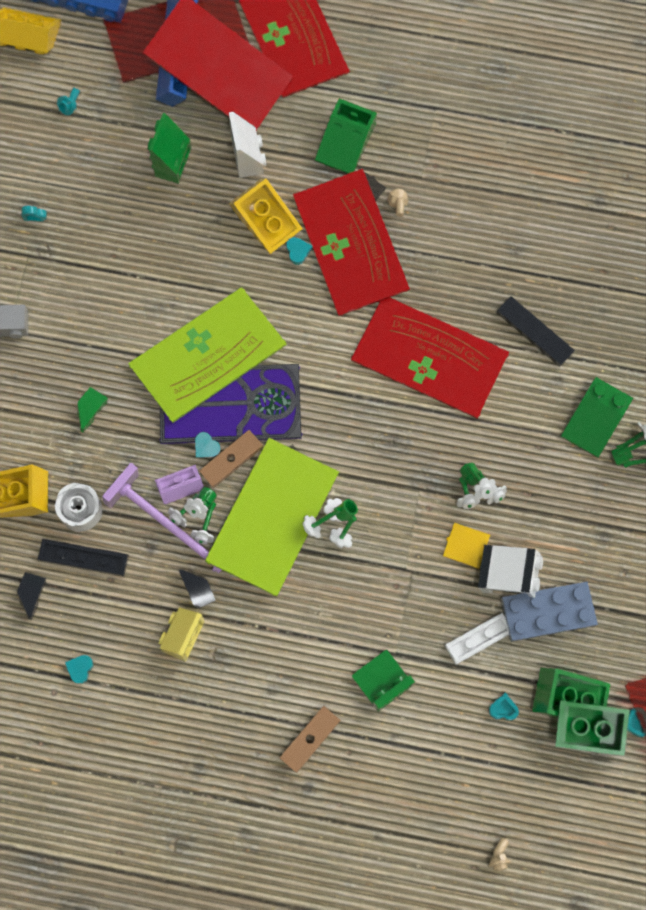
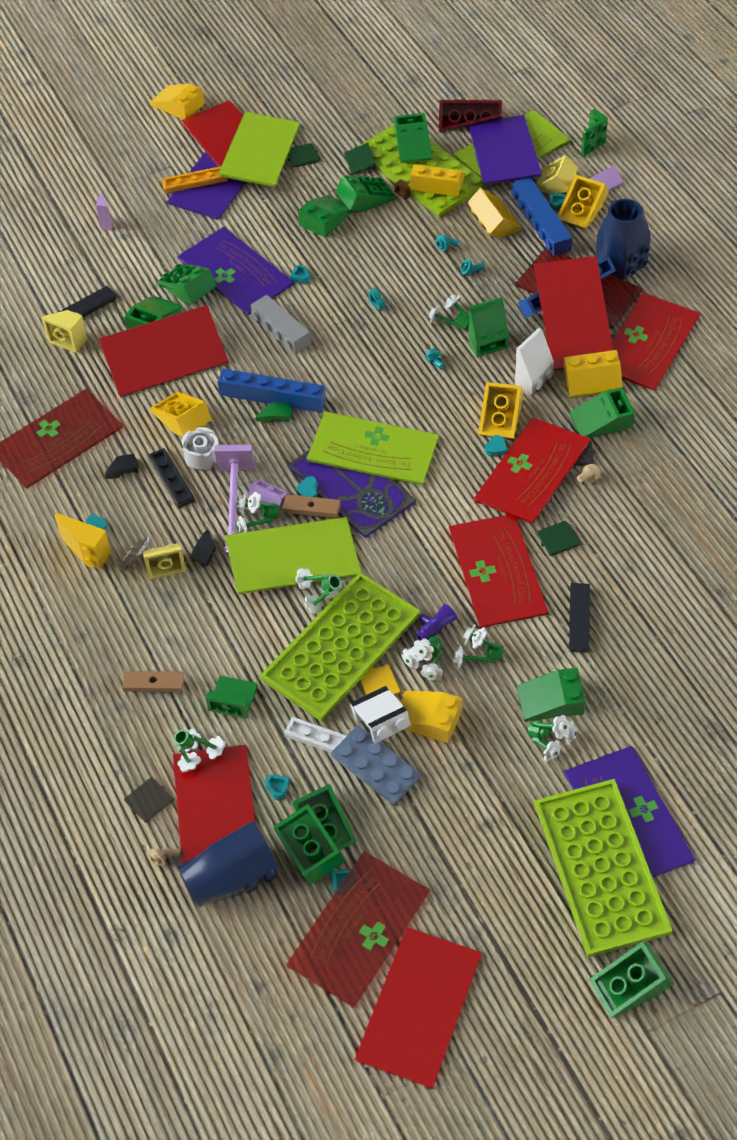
camera: 55 degrees right, 20 degrees down
(15, 100) = (443, 241): none -> teal plate
(62, 391) = (272, 389): none -> blue brick
(104, 693) = (85, 540): none -> yellow slope
(129, 159) = (462, 318): none -> plant
(146, 219) = (434, 356): none -> teal plate
(152, 657) = (134, 554): none -> clear smoke piece
(294, 107) = (592, 373): none -> yellow slope
(405, 549) = (340, 646): none -> lime plate
(413, 759) = (189, 740): none -> plant
(429, 830) = (148, 799): none -> clear smoke piece
(439, 281) = (557, 538): none -> dark green piece
(449, 452) = (435, 624): none -> dark purple piece
(485, 779) = (212, 799): none -> red piece
(509, 431) = (492, 650): none -> plant
(536, 526) = (432, 713): none -> yellow slope
(568, 811) = (230, 866): none -> dark blue animal

